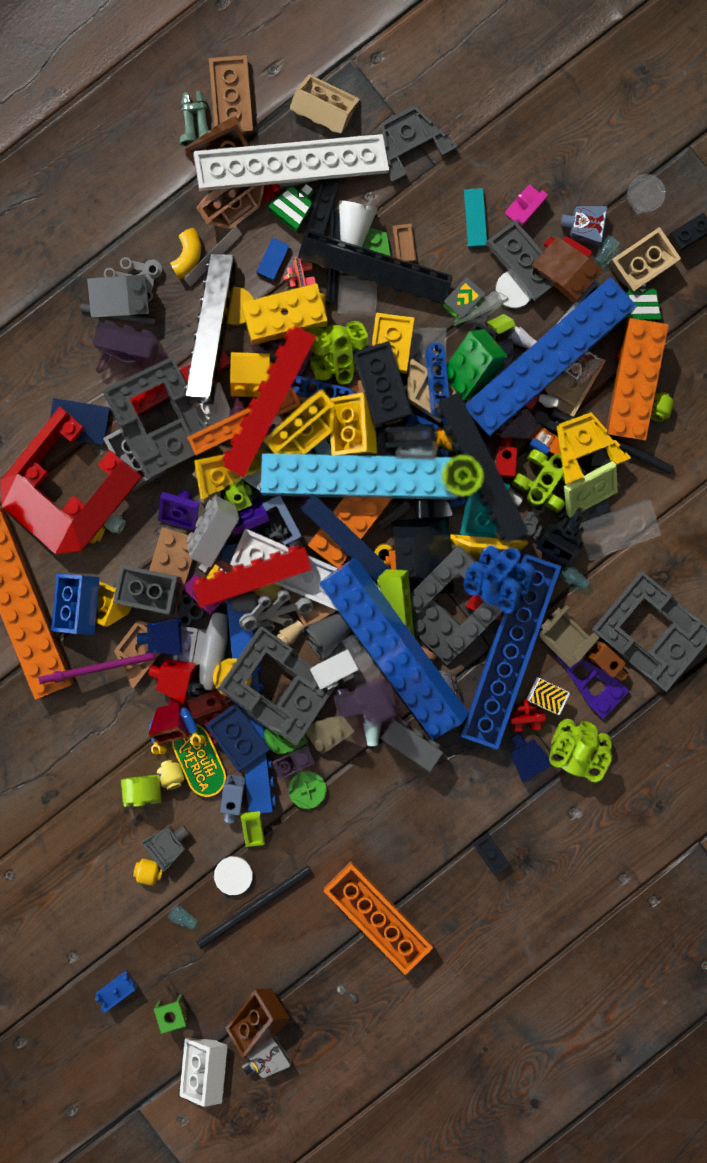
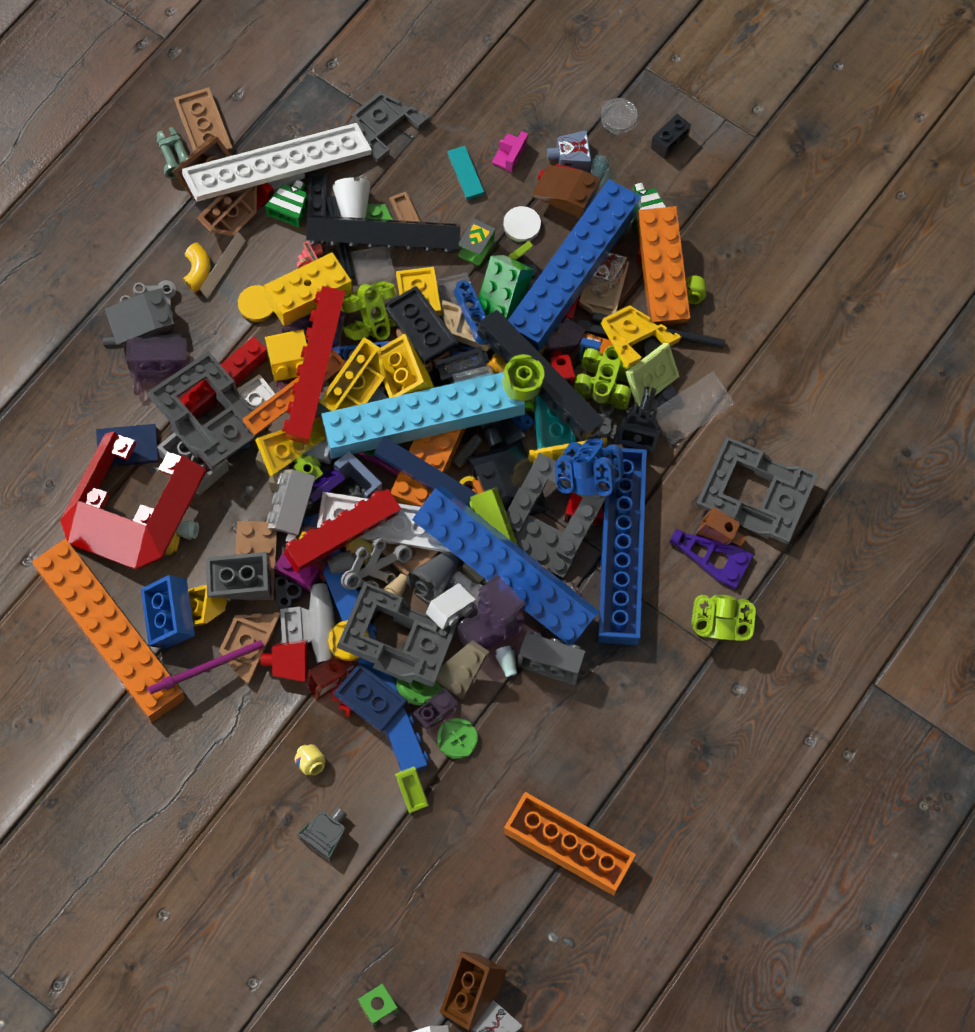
camera: 25 degrees left, 20 degrees down
(116, 991) = (311, 1003): blue hinge -> none
(141, 790) = (283, 779): lime brick -> none
(147, 872) = (312, 866): yellow head -> none
(163, 637) = (266, 620): clear blue torso -> none
(172, 724) = (297, 704): dark red torso -> none
(179, 510) = (250, 498): dark purple tile -> none
(182, 917) = (360, 904): clear light blue cone -> none
(195, 689) = (312, 661): black piece -> none
(201, 764) = (336, 738): tile -> none
(211, 329) = (240, 322): brick -> none
(232, 797) = (382, 754): sand blue torso -> none
(233, 875) = (404, 847): white tile -> none
(254, 907) = (434, 875): black piece -> none
(273, 259) = (281, 254): blue tile -> none
(324, 103) = (293, 111): tan slope -> none
(483, 309) = (498, 244): clear panel -> none
(491, 853) = (666, 750): black plate -> none
(517, 254) = (516, 192): dark grey plate -> none
(521, 338) = (540, 261): white cone -> none
(526, 714) = (669, 605): red hips -> none
(528, 757) = (674, 643): clear blue torso -> none
(548, 696) = (673, 578): piece -> none
(549, 401) = (586, 307): white tile -> none
(566, 637) = (672, 517): dark tan panel -> none
(574, 577) = (662, 462): clear light blue cone -> none
(644, 260) = (636, 164): tan slope -> none

